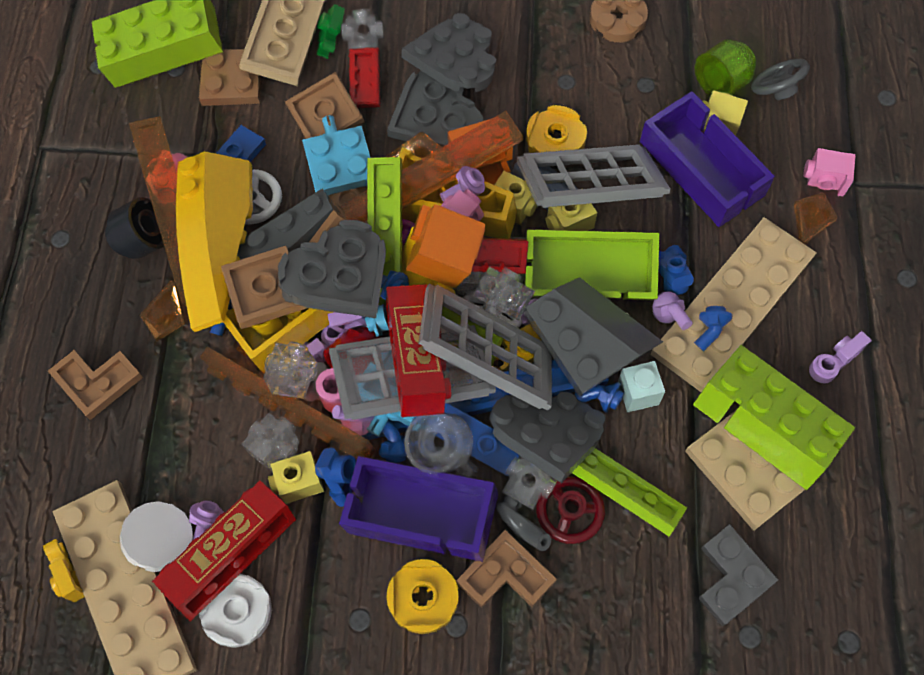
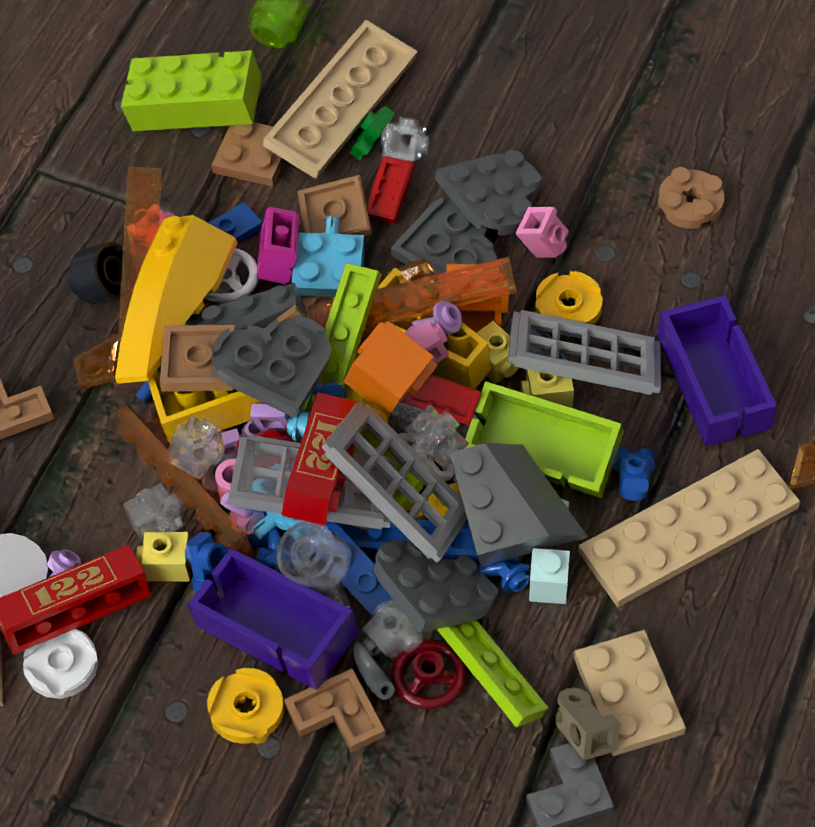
camera: 20 degrees right, 10 degrees down
(288, 156) = (278, 245): none -> dark pink brick
(519, 78) = (549, 238): none -> bright pink brick
(671, 308) = (613, 510): lavender plate -> none
(715, 319) = (653, 532): blue plate -> none
(725, 67) = (779, 284): clear neon green piece -> none
(727, 109) = (761, 330): light yellow brick -> none
(727, 515) = (585, 726): none -> dark tan leg
(775, 417) = (674, 644): lime piece -> none
(826, 367) = (784, 611): lavender plate -> none

